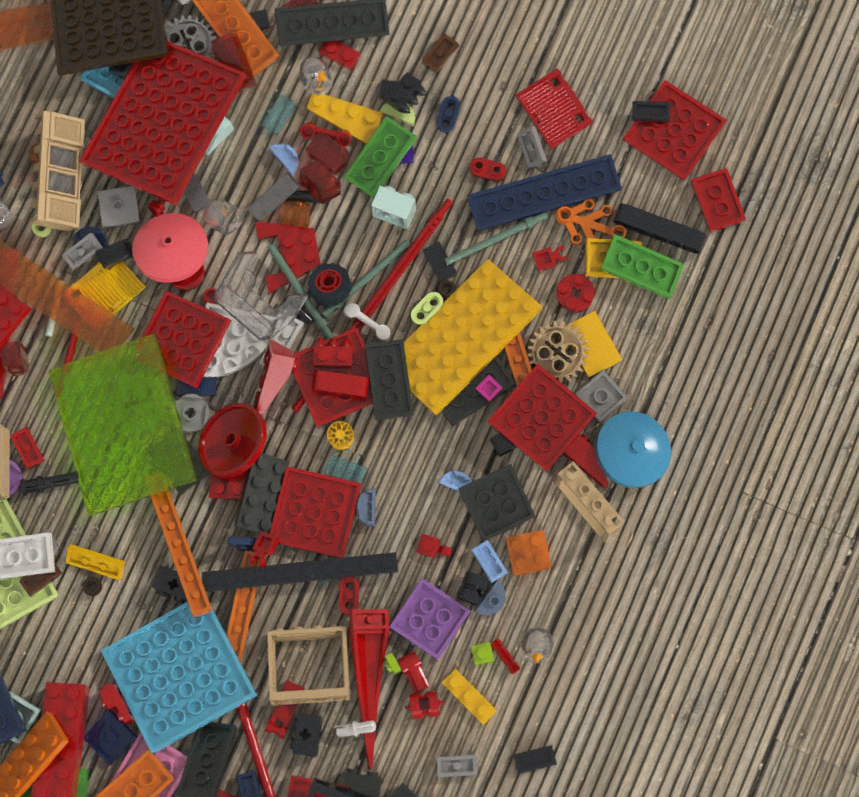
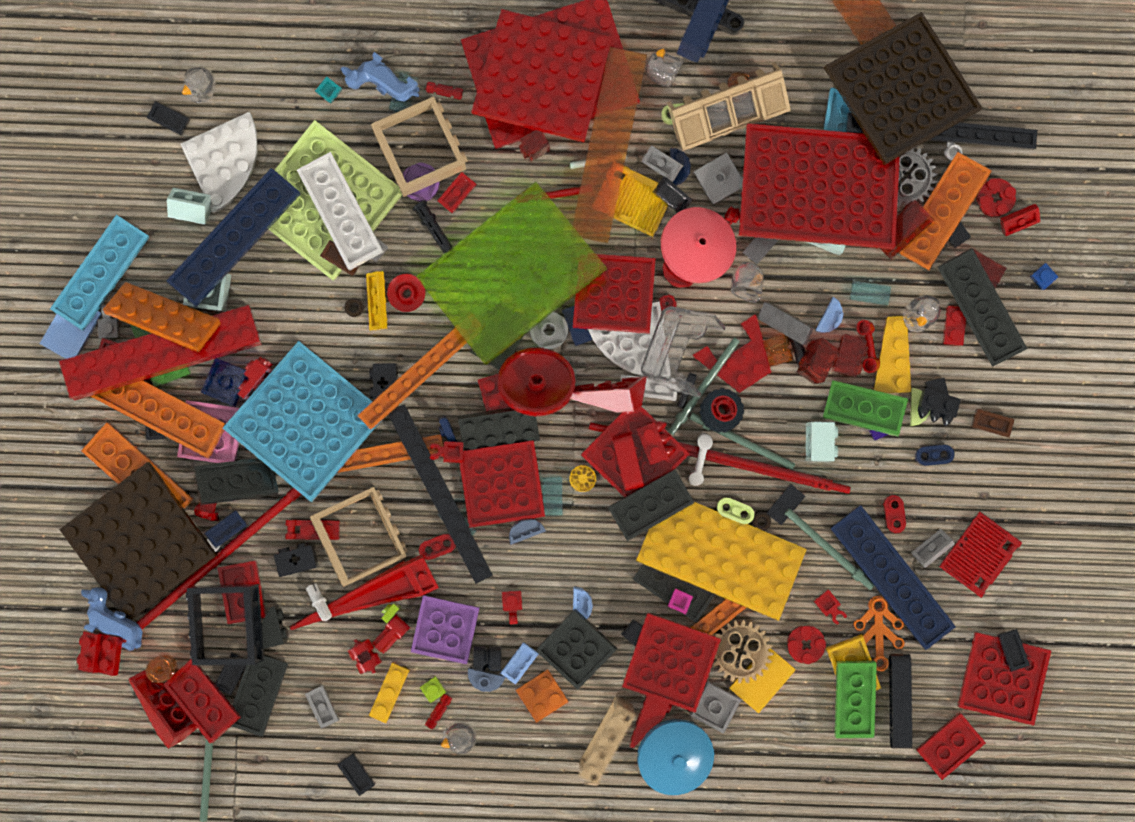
camera: 65 degrees right, 10 degrees up
(90, 528) = (396, 293): none -> red dish

